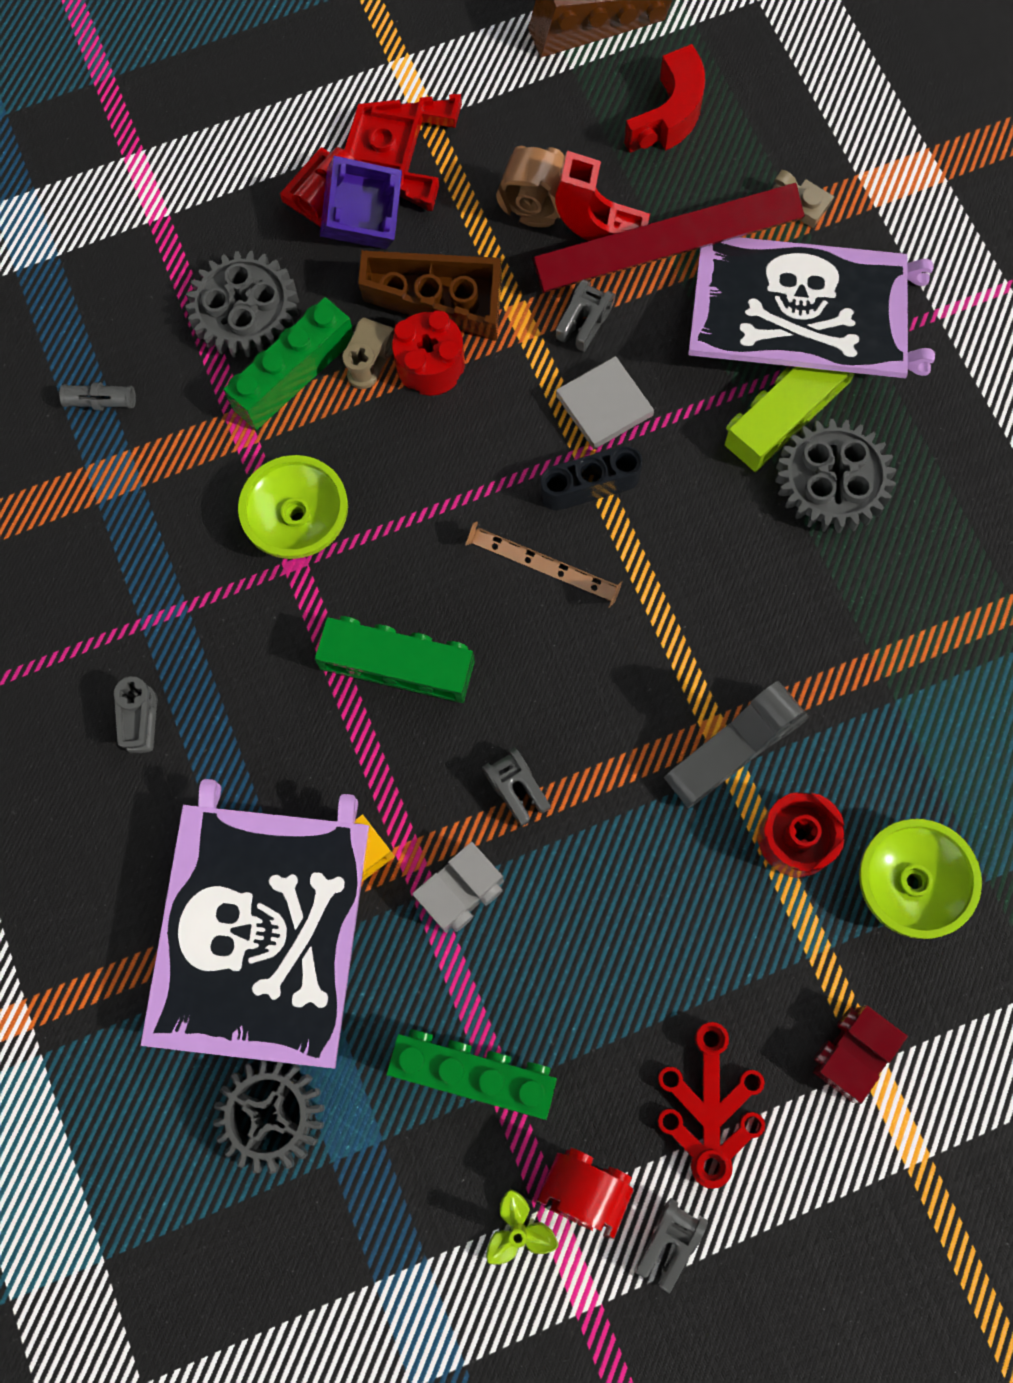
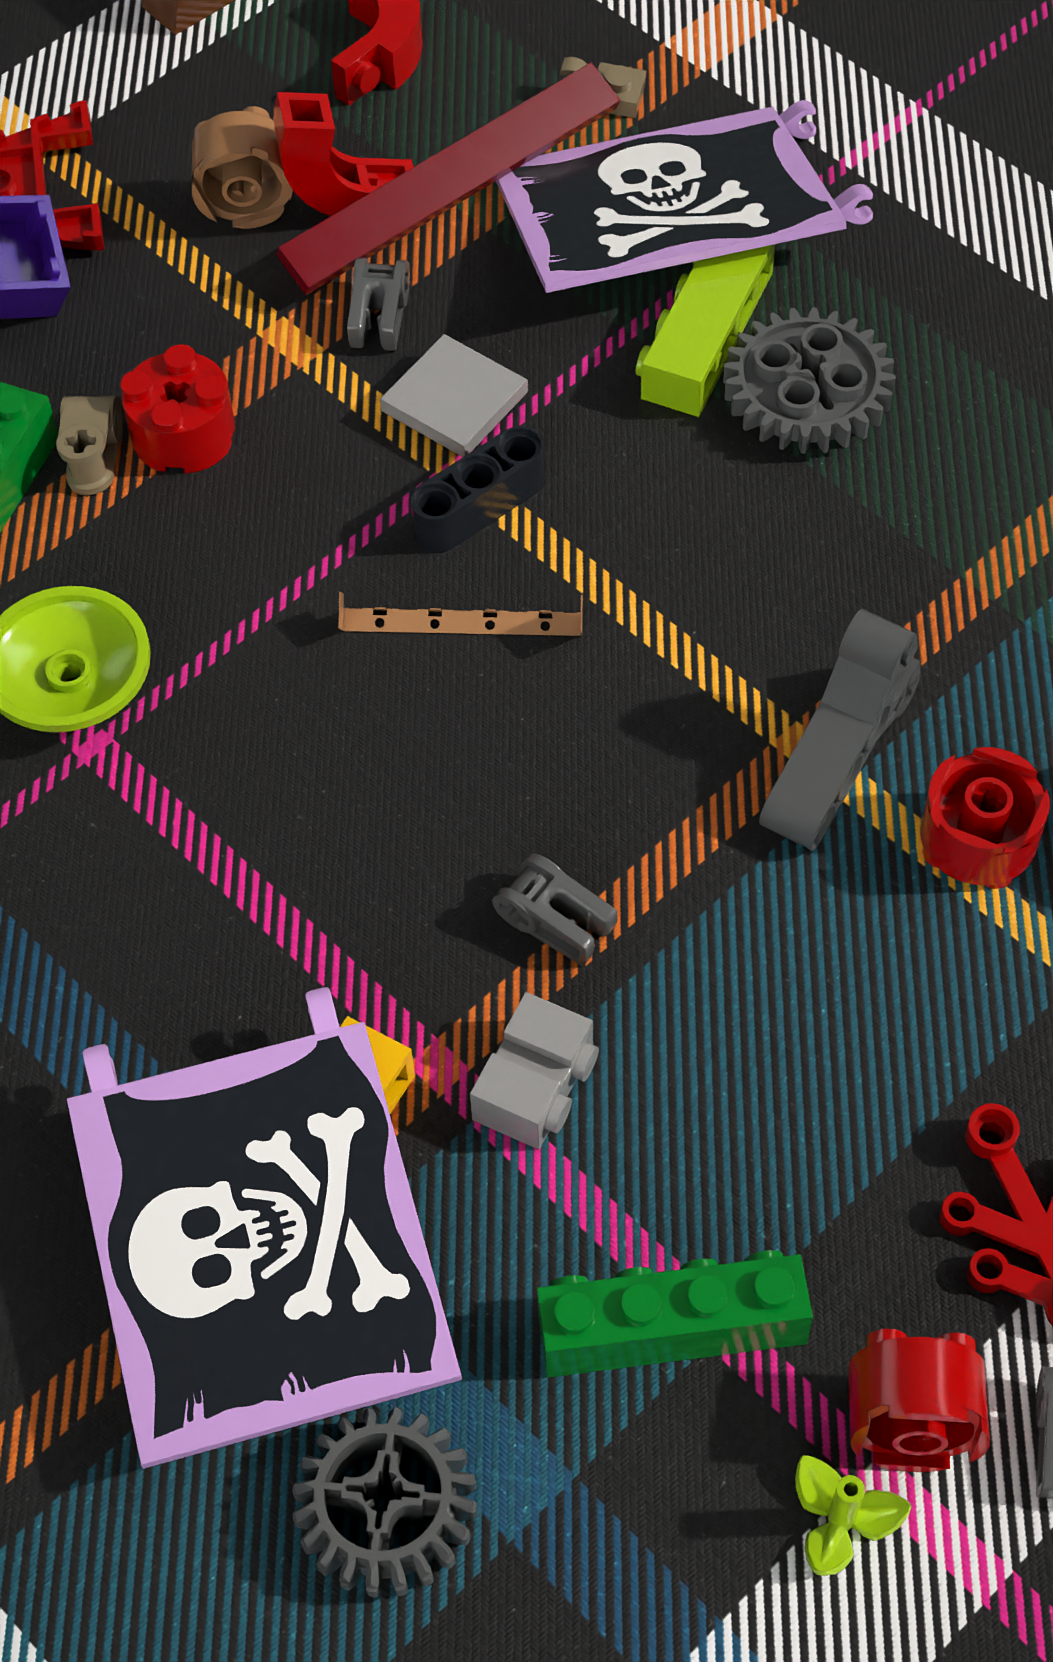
camera: 25 degrees left, 15 degrees down
(395, 658) = (302, 803): green brick -> none
(417, 283) = (117, 328): reddish brown wedge -> none

